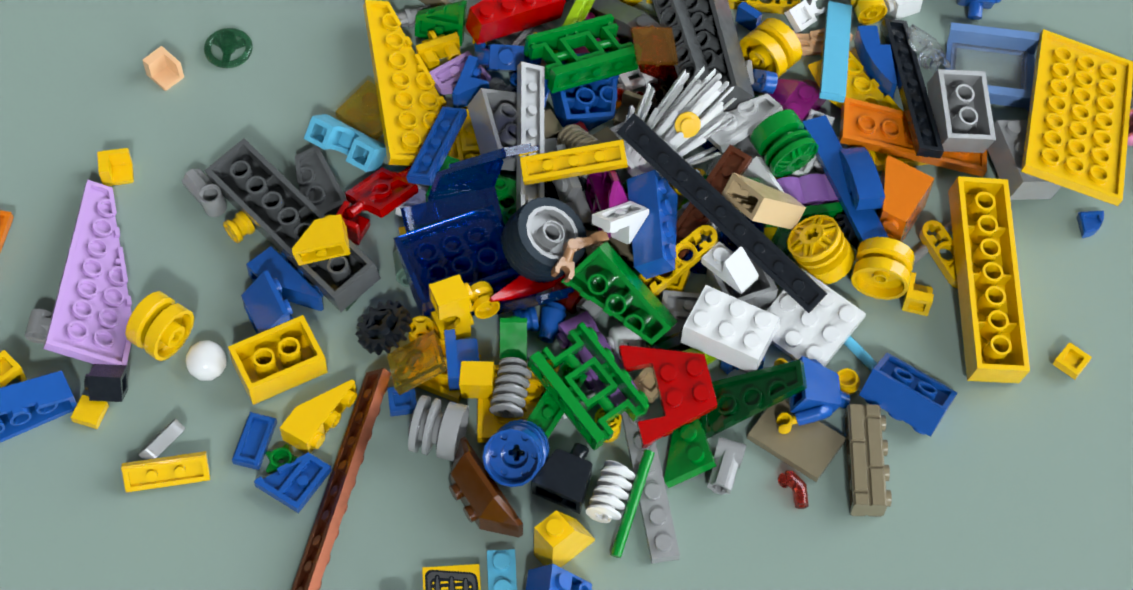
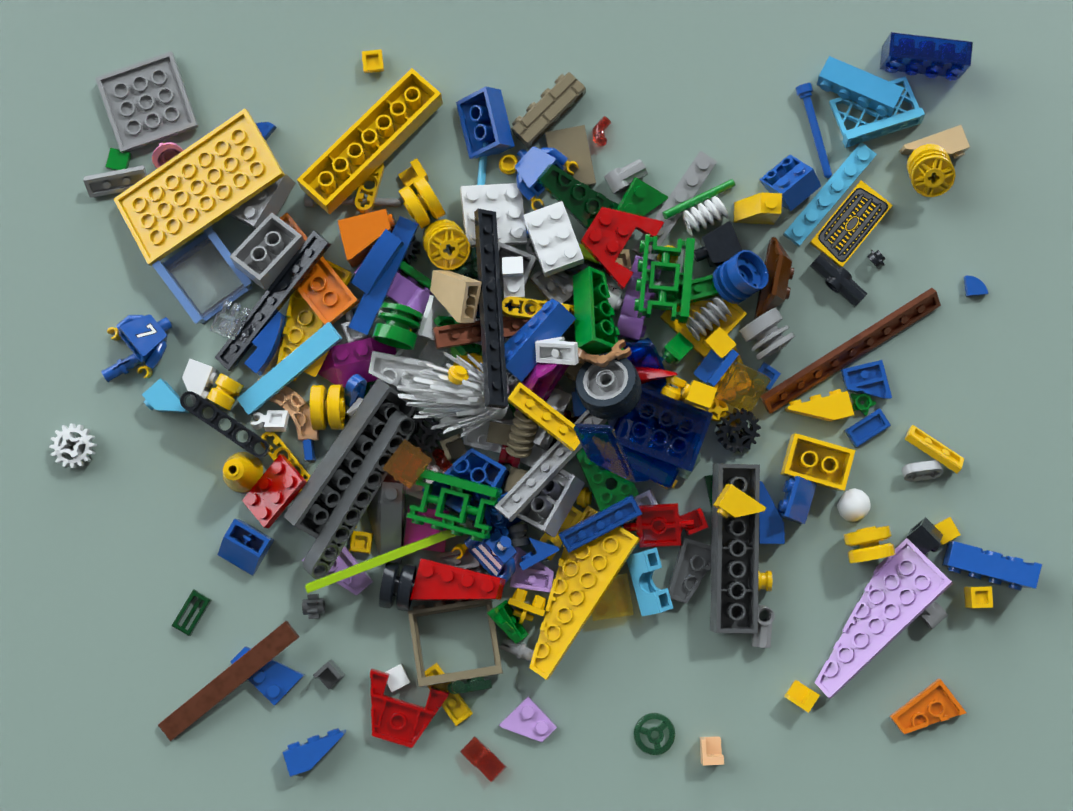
camera: 130 degrees left, 25 degrees up
(414, 550) = (838, 279): none -> black piece

